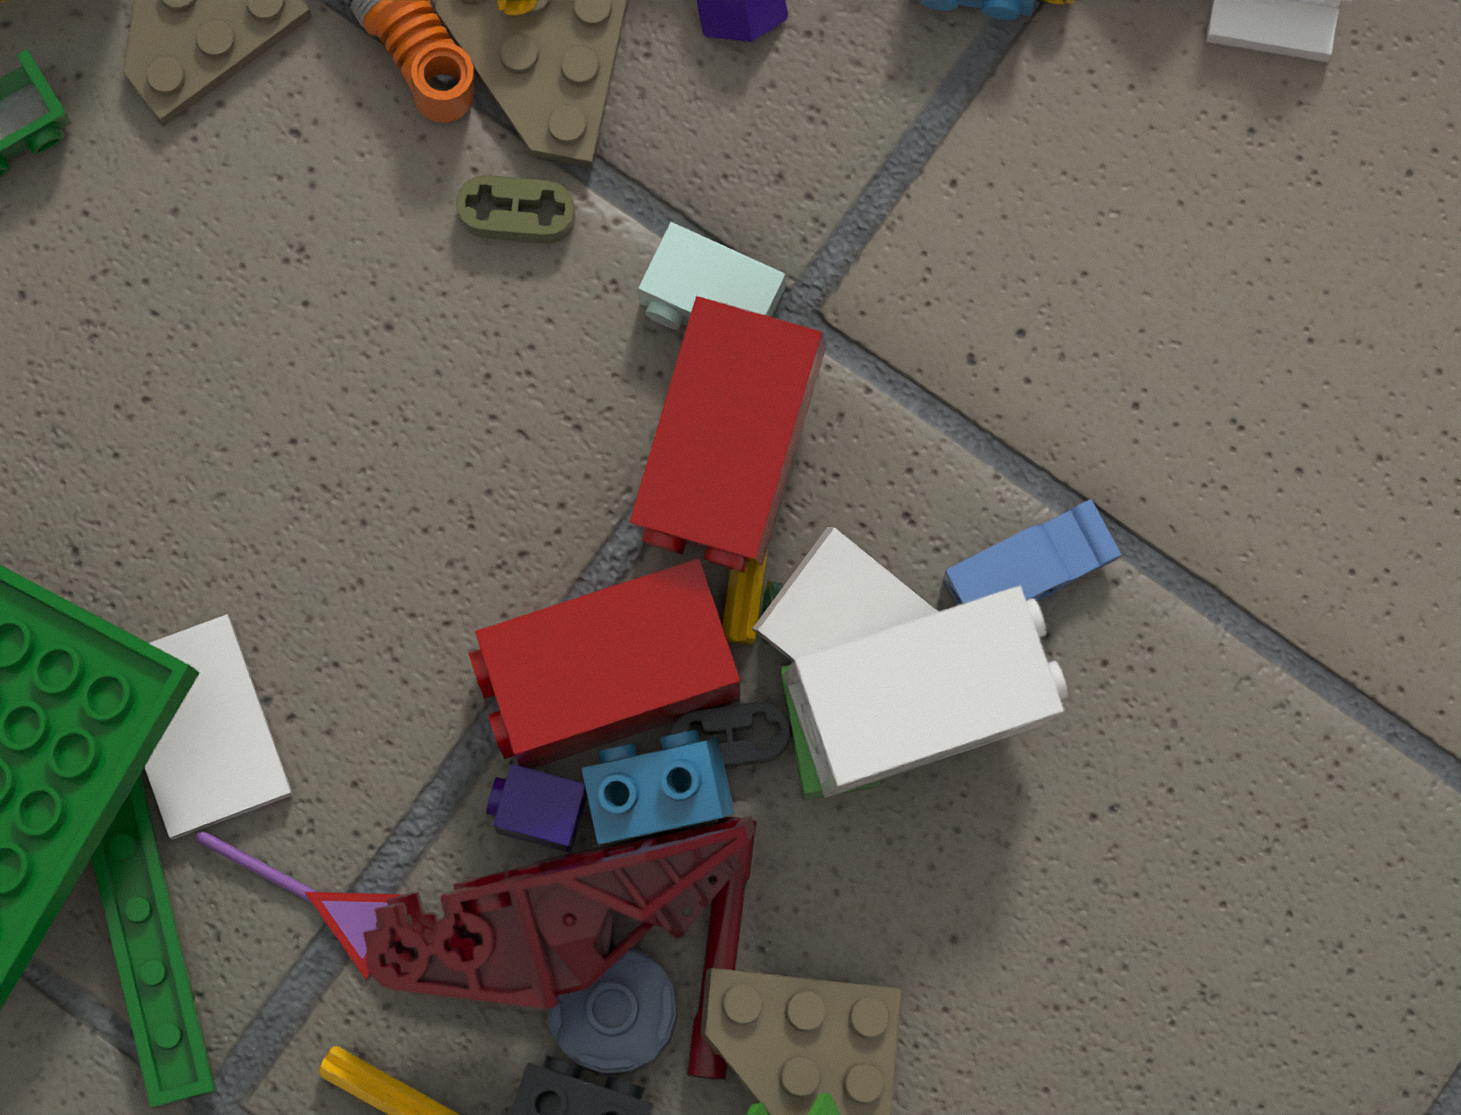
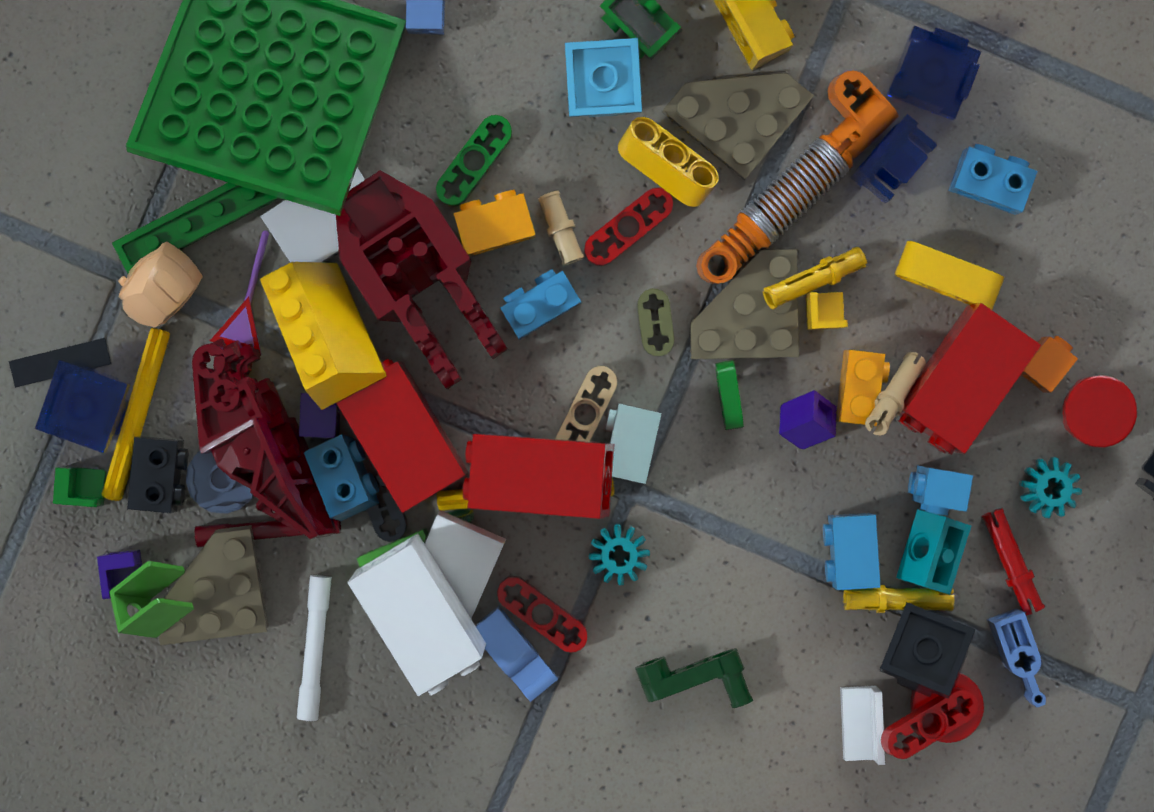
camera: 75 degrees right, 10 degrees up
(79, 196) = (603, 77): none -> medium azure panel
(150, 406) = (497, 144): none -> green beam
(246, 1039) = (159, 285): none -> light nougat helmet
(248, 125) = (668, 161): none -> yellow beam
(274, 587) = (398, 247): none -> dark red connector
(282, 434) = (494, 223): none -> light orange brick
(316, 329) = (560, 228): none -> tan pin
(340, 172) = (644, 203): none -> red beam
(392, 756) = (322, 330): none -> yellow slope
(439, 387) = (541, 304): none -> dark azure brick
(598, 343) = (588, 385): none -> tan beam
(667, 111) = (729, 395): none -> green beam
(879, 891) = (317, 608): none -> white piece
(880, 336) = (610, 562): none -> teal gear
(998, 463) = (559, 636): none -> red beam
(1134, 328) = (660, 682): none -> dark green beam

